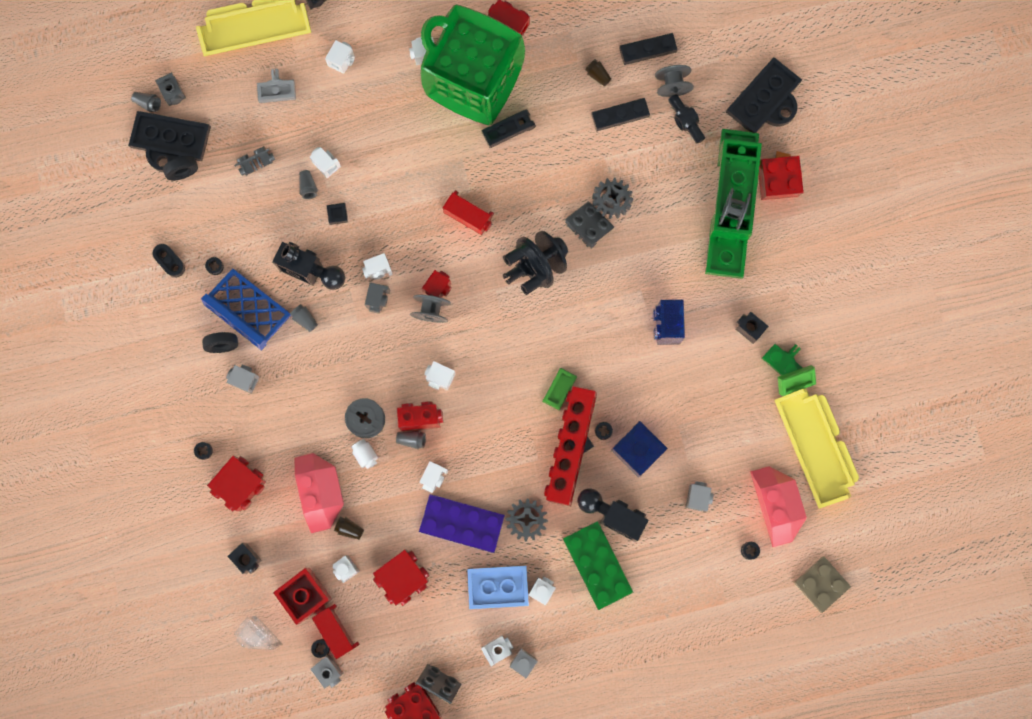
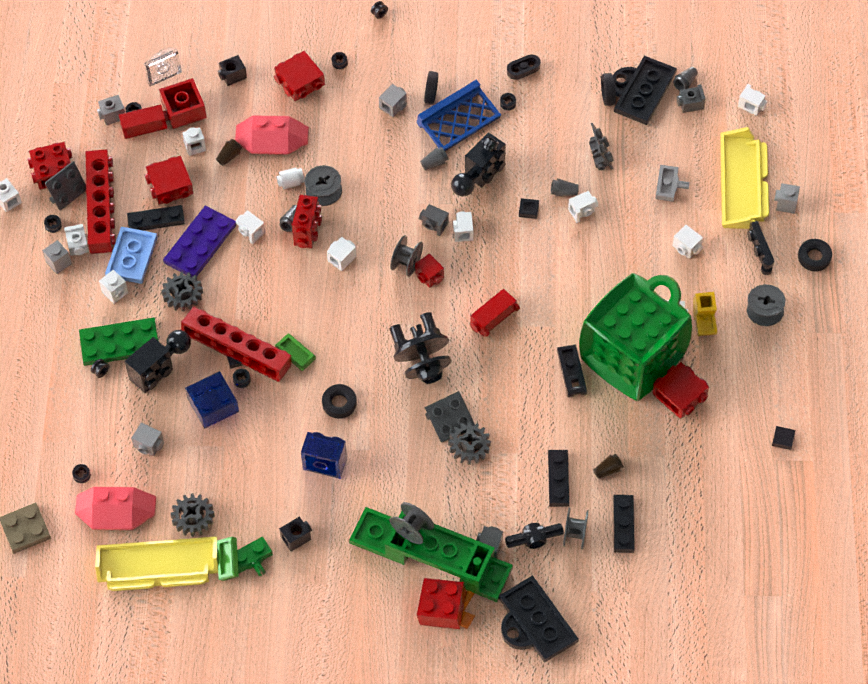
camera: 105 degrees right, 20 degrees down
(128, 427) = (379, 9): none -> black bush
(159, 33) = (752, 100): none -> white brick
(397, 667) = (98, 241): none -> red brick
(413, 20) = (704, 313): none -> yellow brick
(446, 578) = (156, 218): none -> black plate
(486, 681) = (50, 219): none -> black bush
(601, 319) = (339, 412): none -> black tyre
(635, 572) = (100, 368): none -> black bush
(705, 154) = (491, 536): none -> dark grey brick
(758, 435) = (192, 518): none -> dark grey gear

